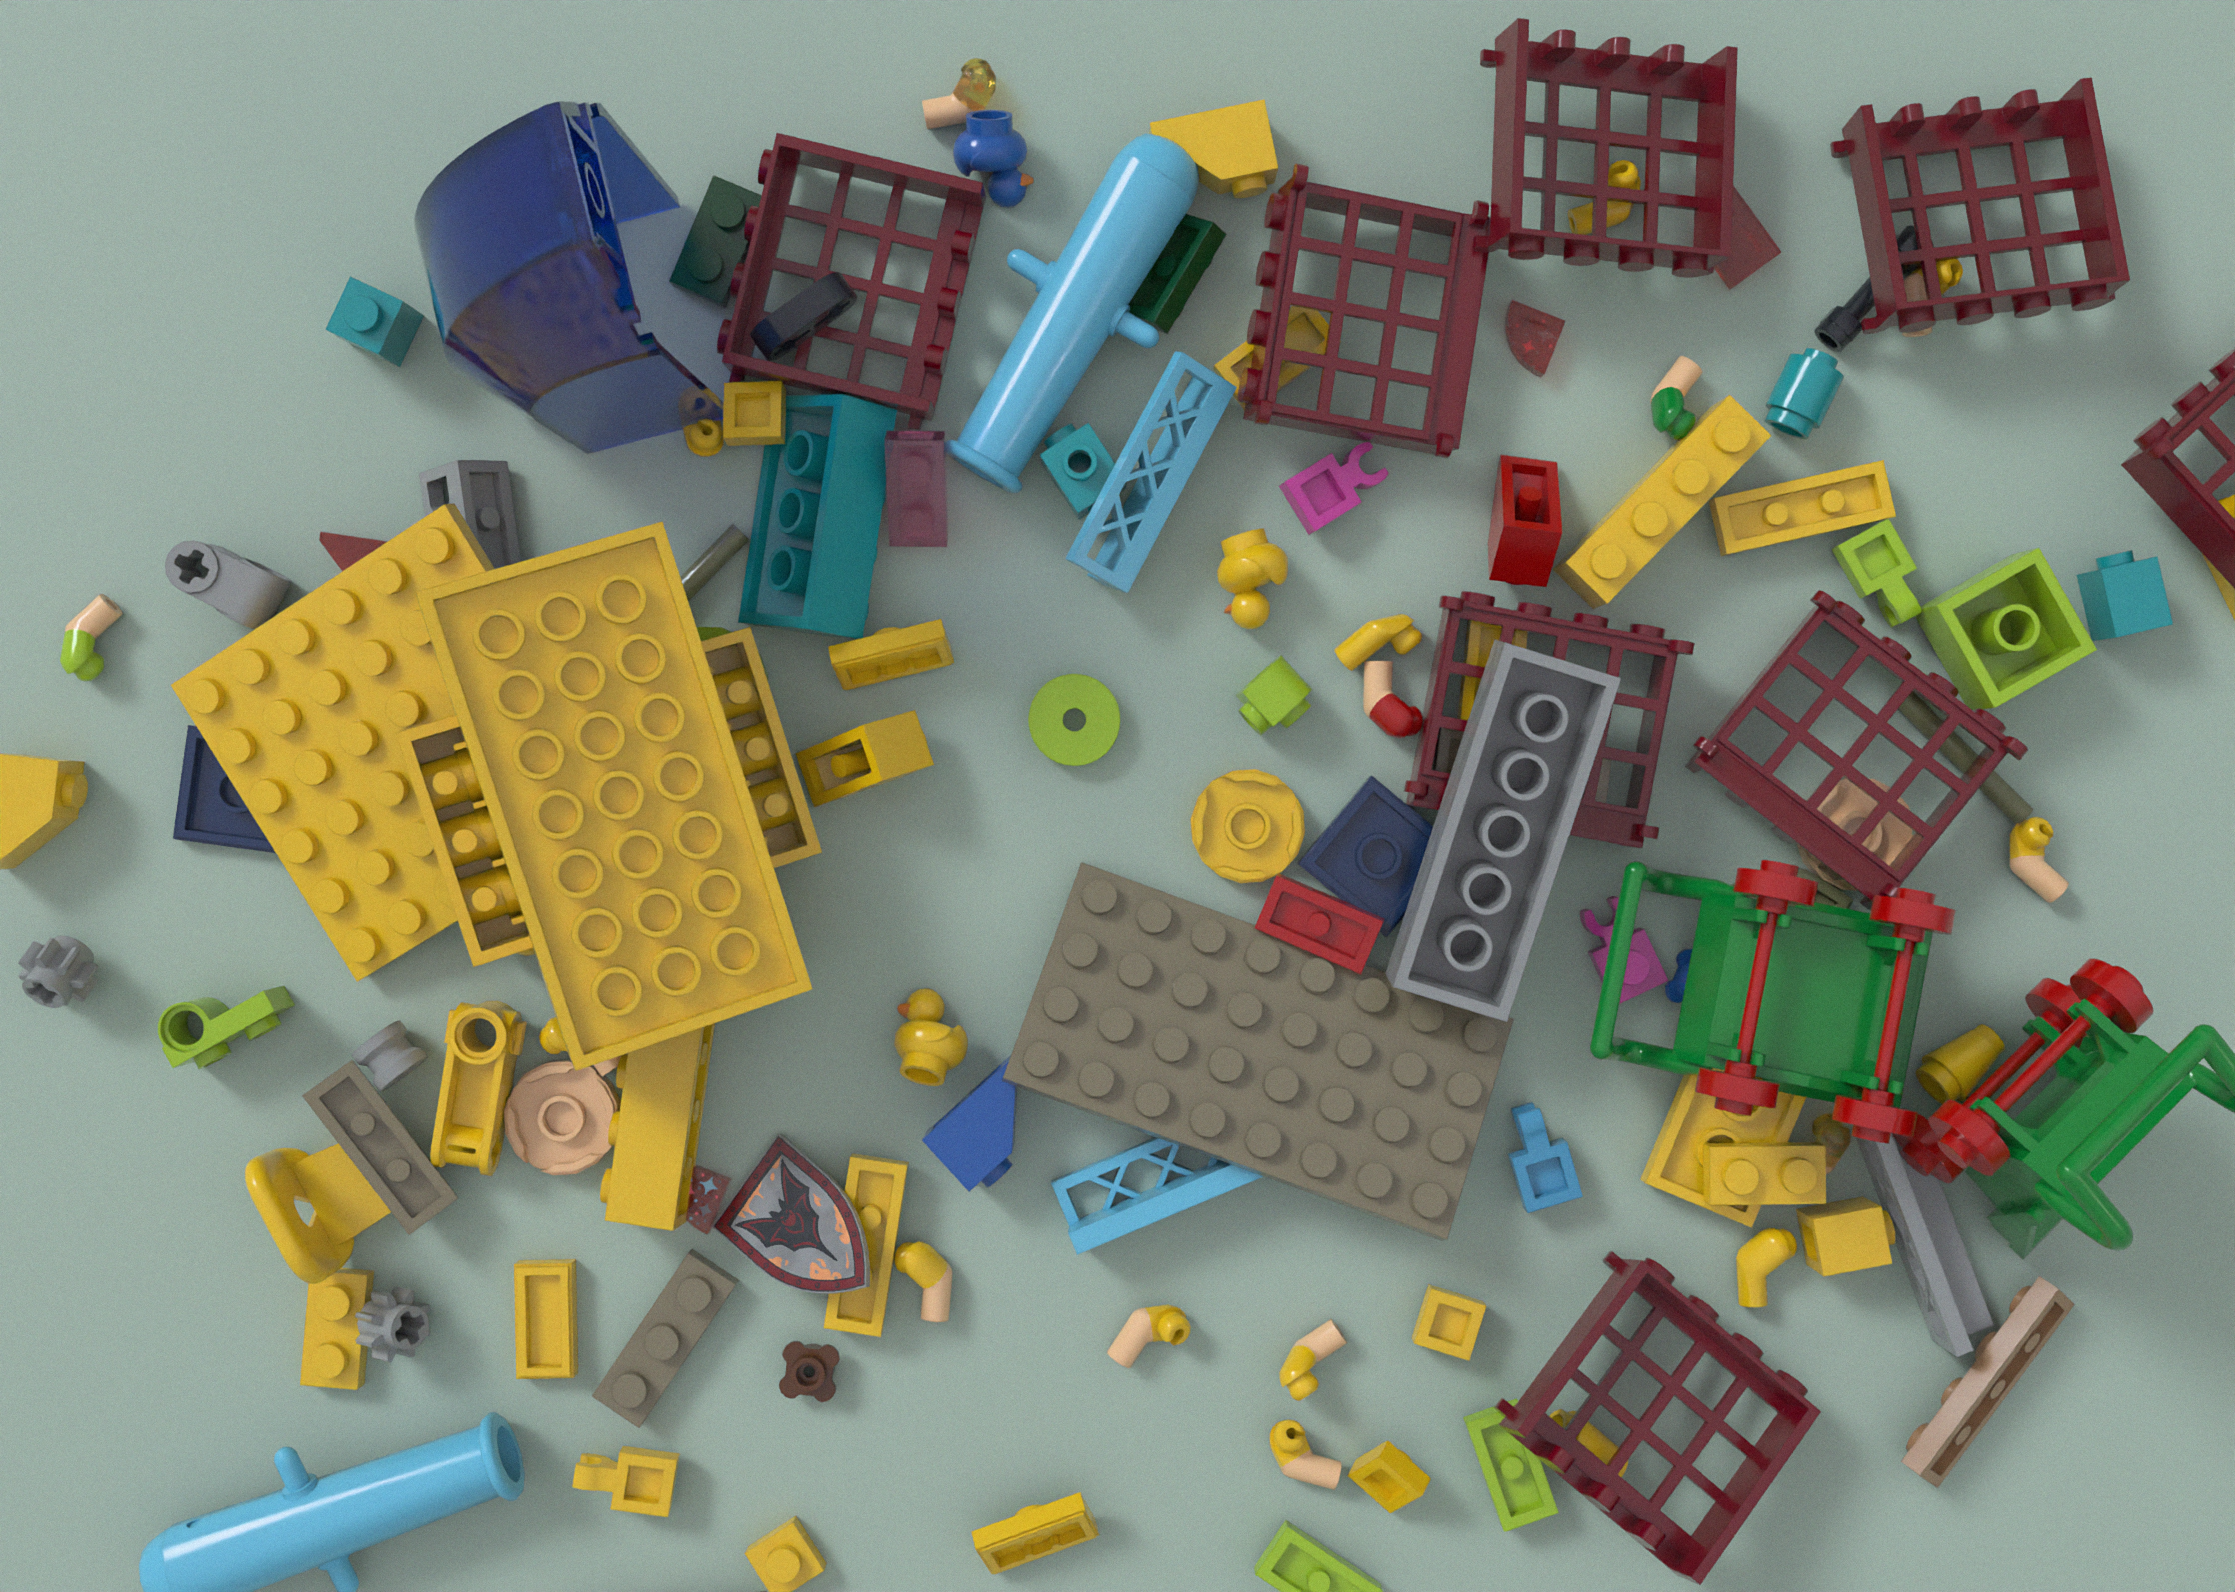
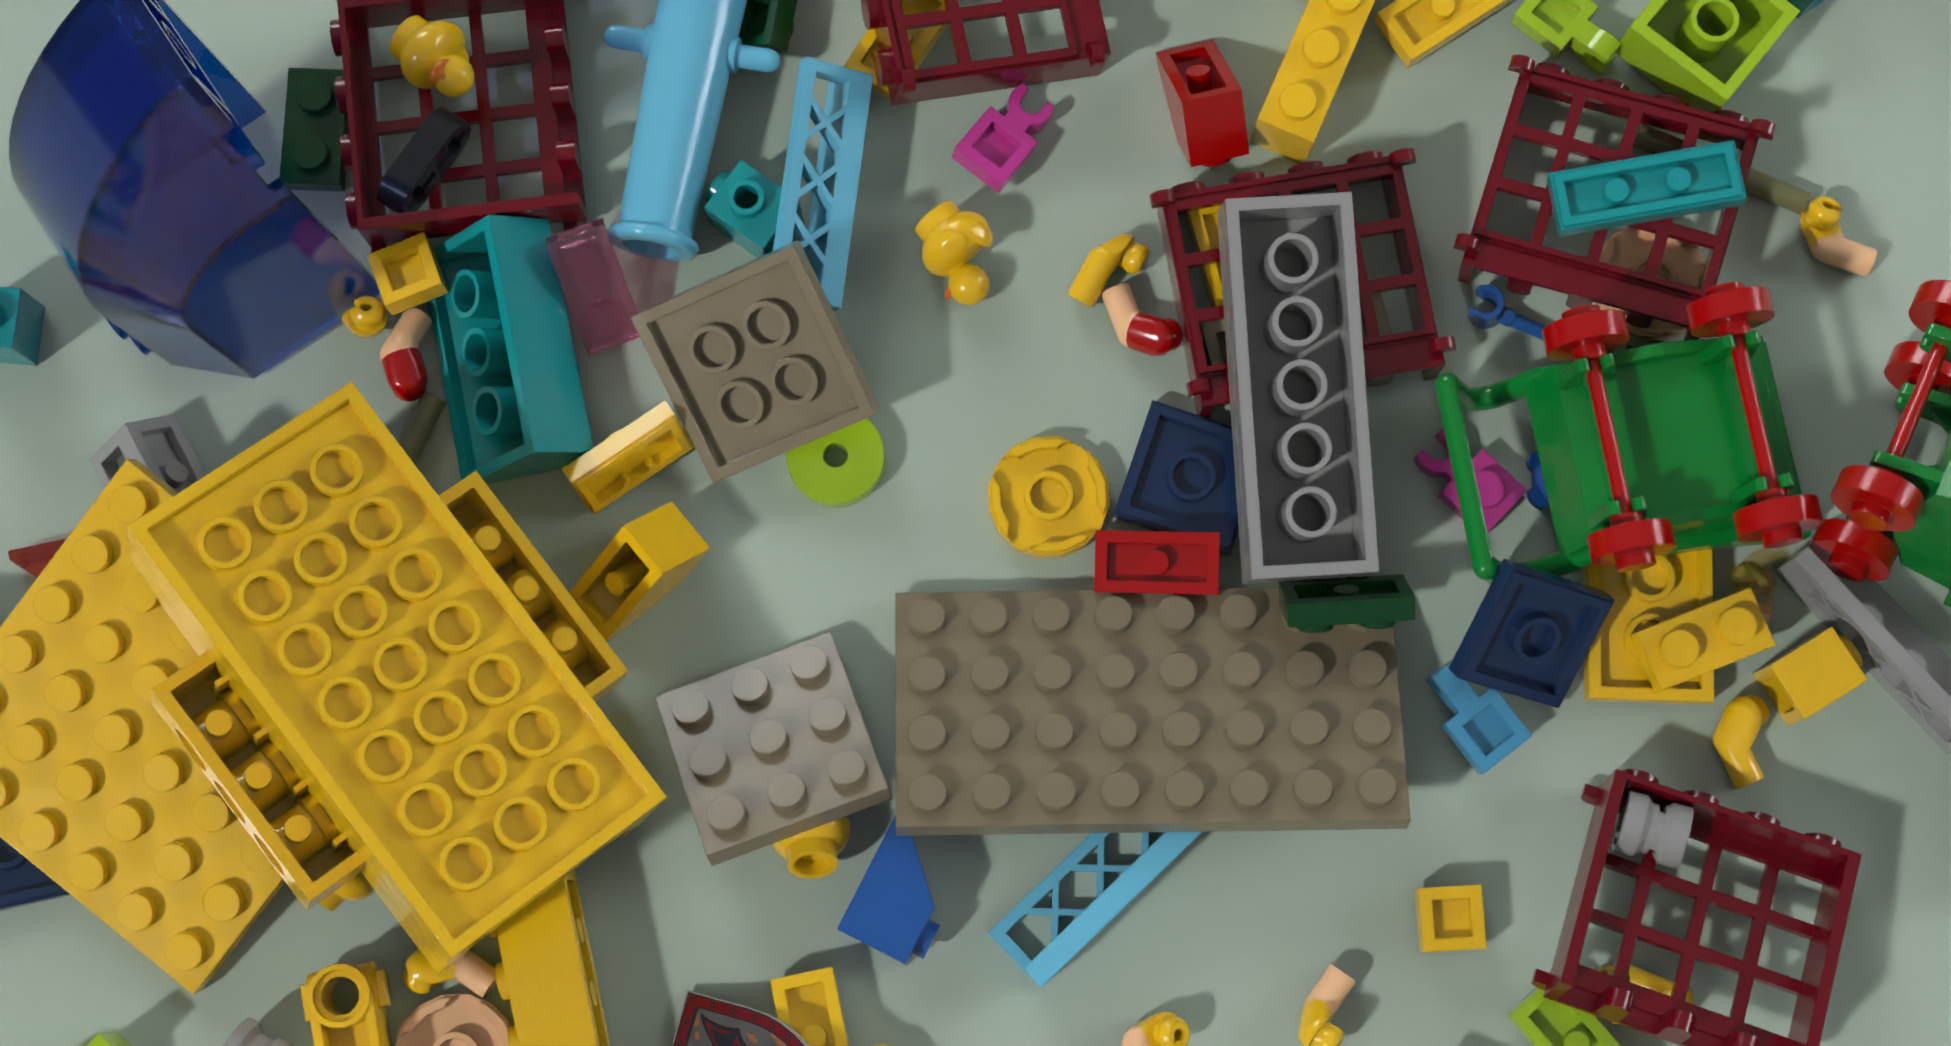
camera: 15 degrees left, 10 degrees down
(724, 485) = (402, 356): none -> arm
(846, 220) = (433, 55): none -> yellow animal
(923, 961) = (772, 749): none -> dark tan plate
(1033, 617) = (755, 362): none -> dark tan plate
(1274, 697) = (1024, 358): lime plate -> none
(1470, 1032) = (1364, 600): none -> dark green plate
(1618, 1113) = (1531, 633): none -> dark blue tile
(1650, 1319) = (1645, 827): none -> light grey wheel
(1715, 817) = (1502, 314): none -> blue hand
(1887, 761) = (1646, 188): none -> teal tile
(1960, 1064) = (1852, 447): yellow cone -> none

